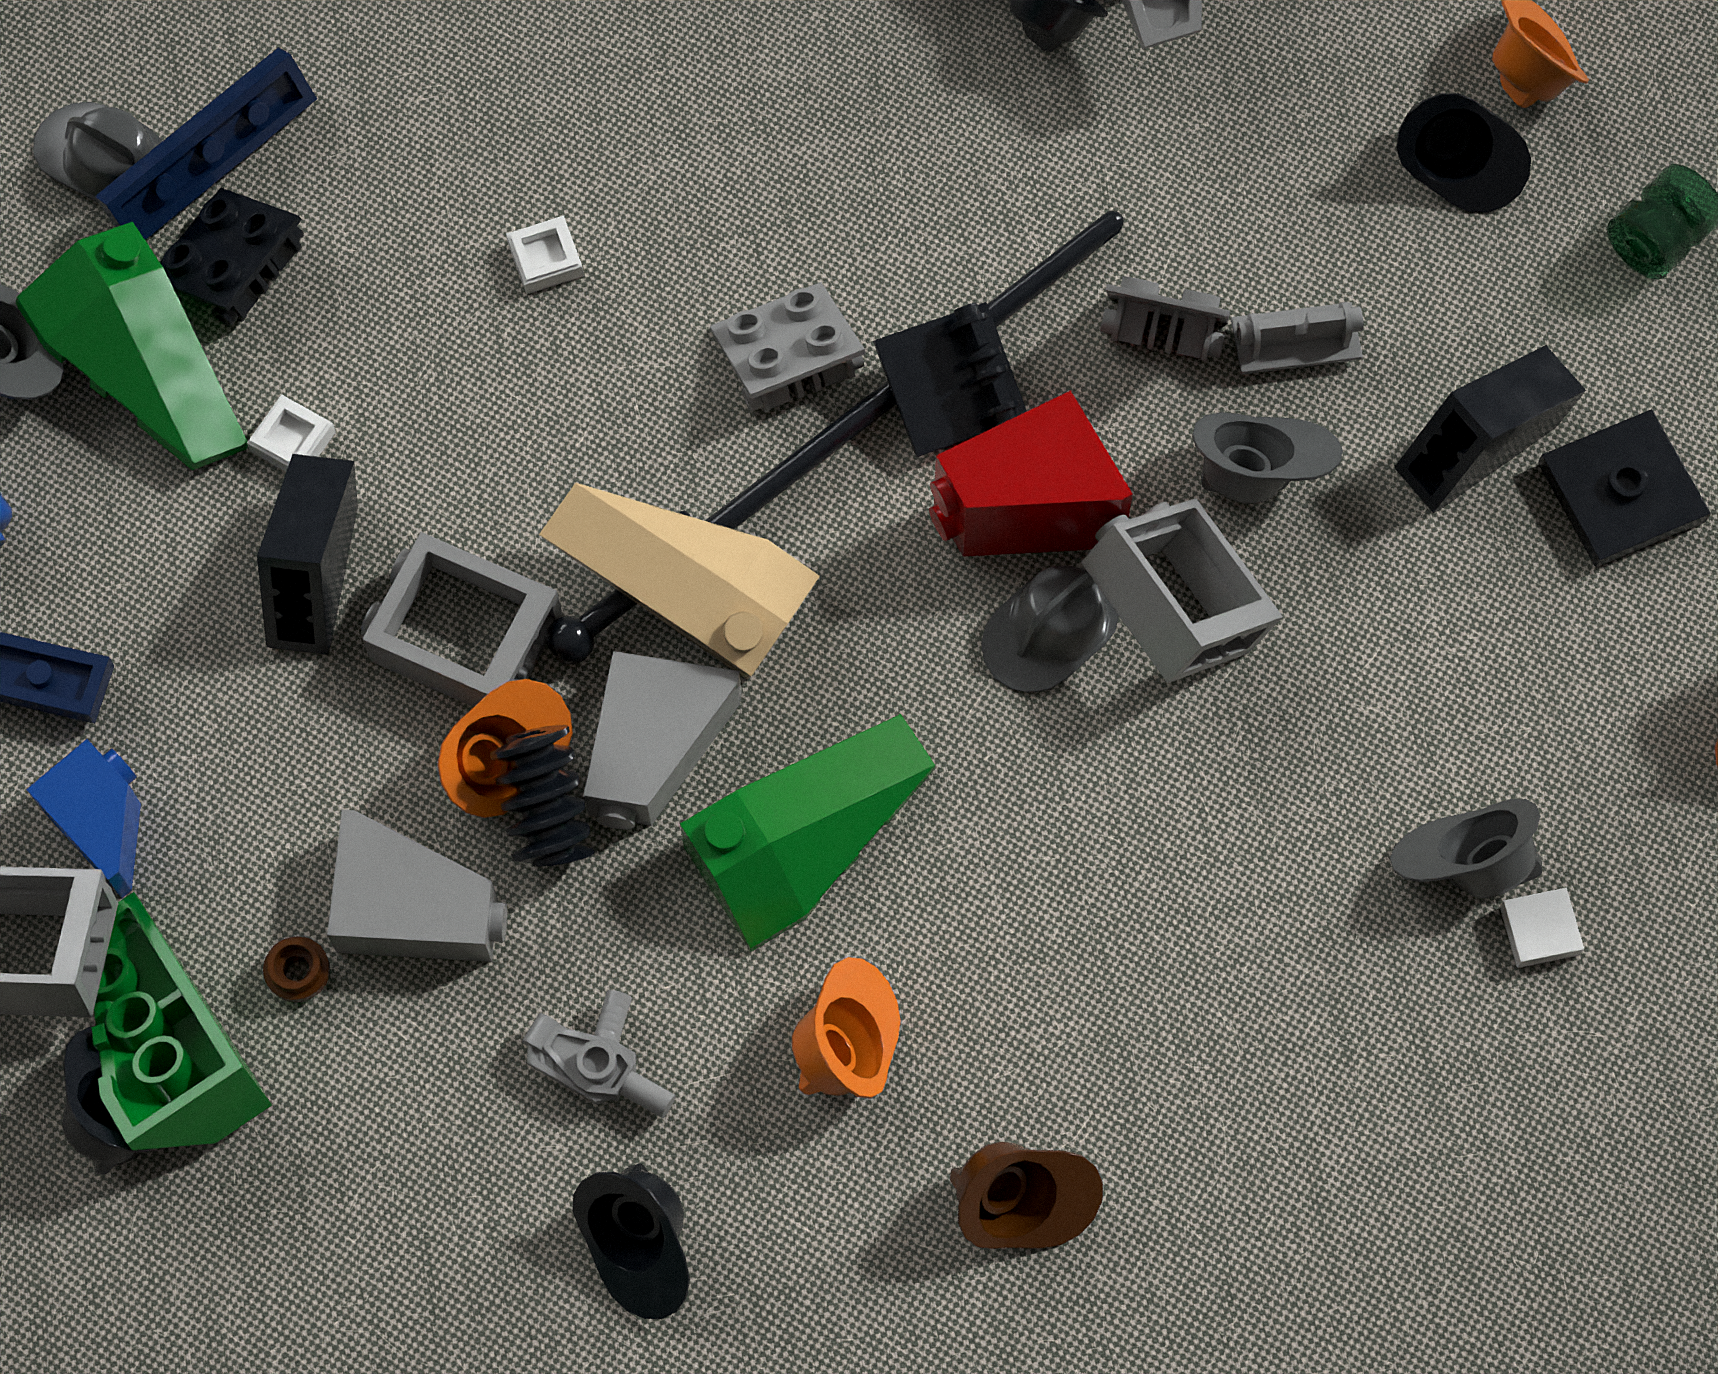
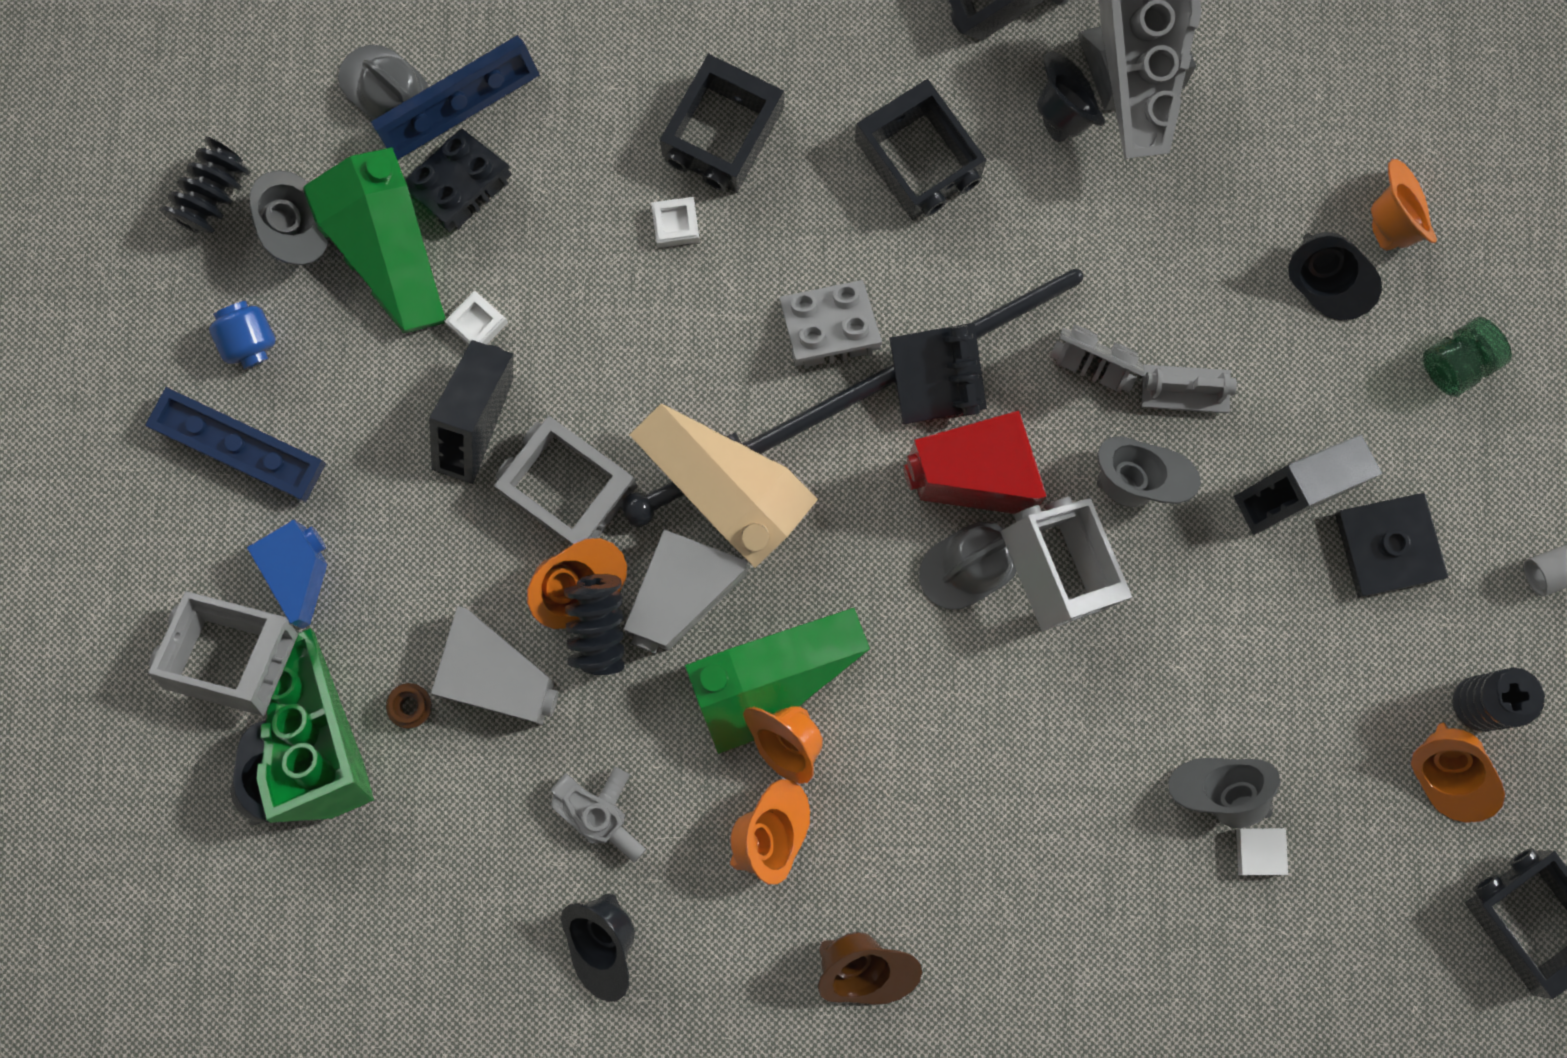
camera: 10 degrees right, 10 degrees up
(599, 63) = (741, 88): none -> black window
(825, 56) = (897, 115): none -> black window
(840, 902) = (786, 741): none -> orange piece

